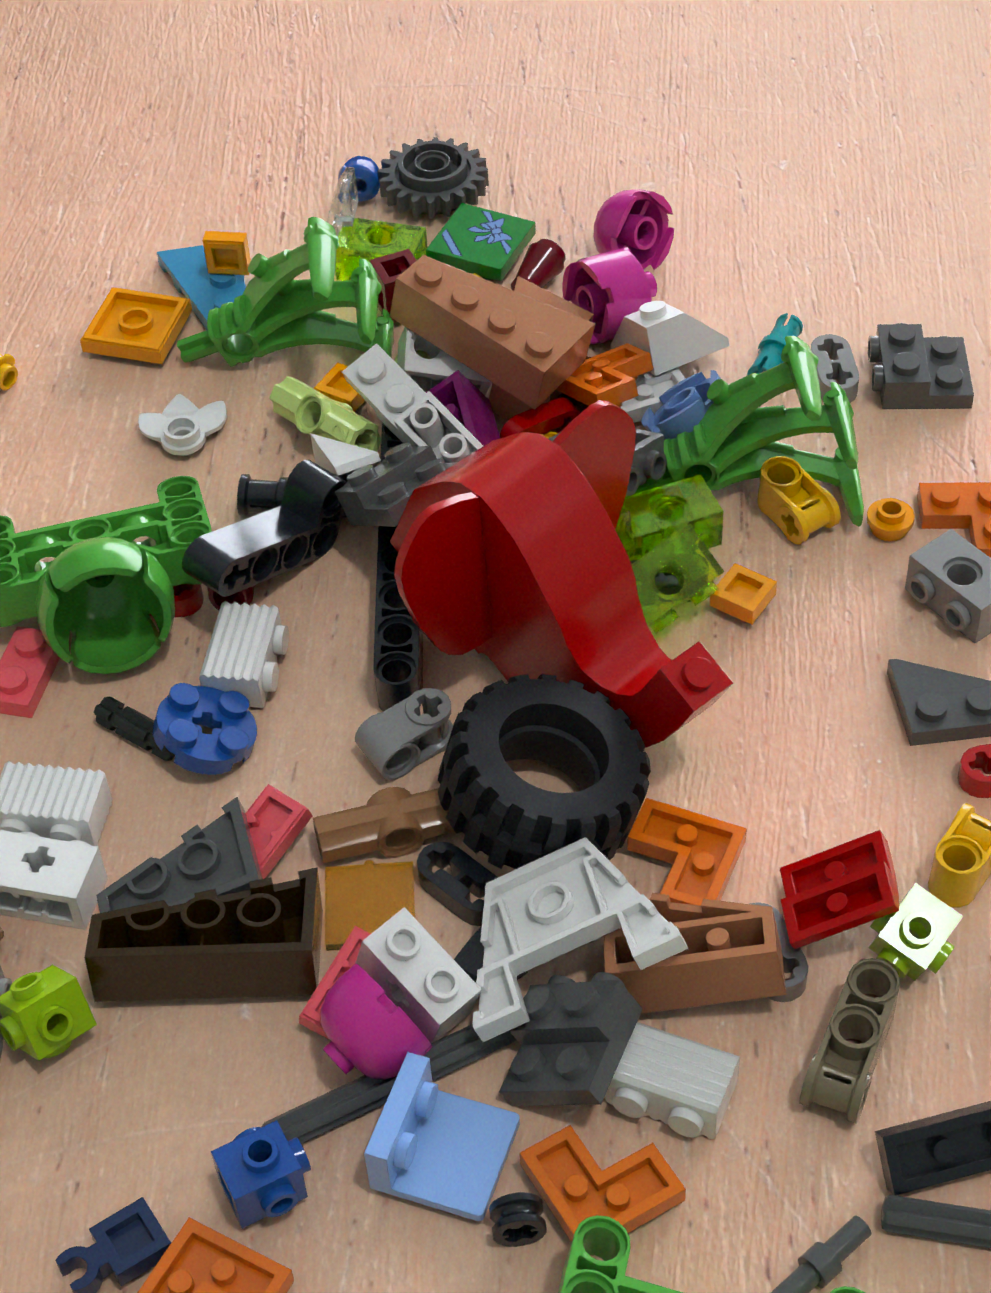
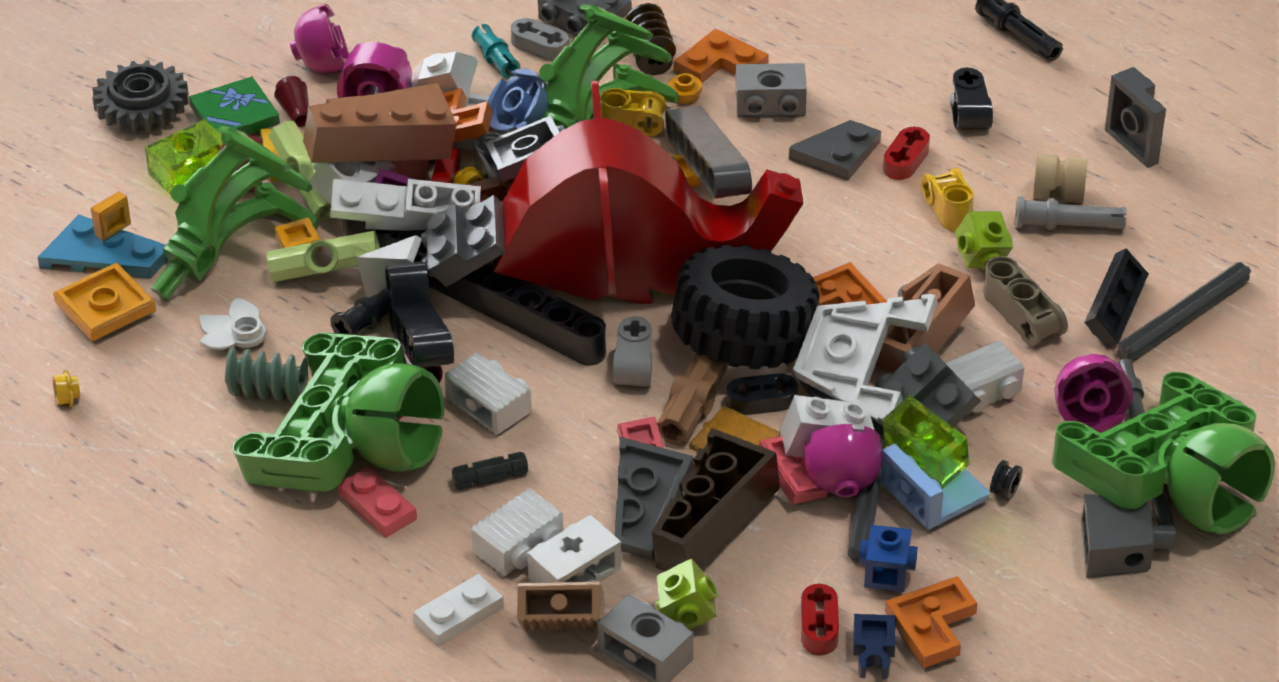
camera: 55 degrees left, 5 degrees down
(115, 474) = (265, 377): none -> sand green piece
(127, 1167) = (825, 619): none -> red beam
(224, 712) = (533, 433): blue plate -> none
(344, 201) = (135, 144): clear slope -> none
(366, 176) = (95, 127): blue piece -> none
(469, 1090) = (928, 439): none -> clear neon green brick
(577, 1188) = (1023, 445): orange plate -> none
(745, 588) = (708, 152): none -> dark grey beam
(748, 1219) = (1093, 392): none -> dark pink cylinder
(839, 889) = (931, 241): red slope -> none
(923, 442) = (652, 18): none -> dark brown piece

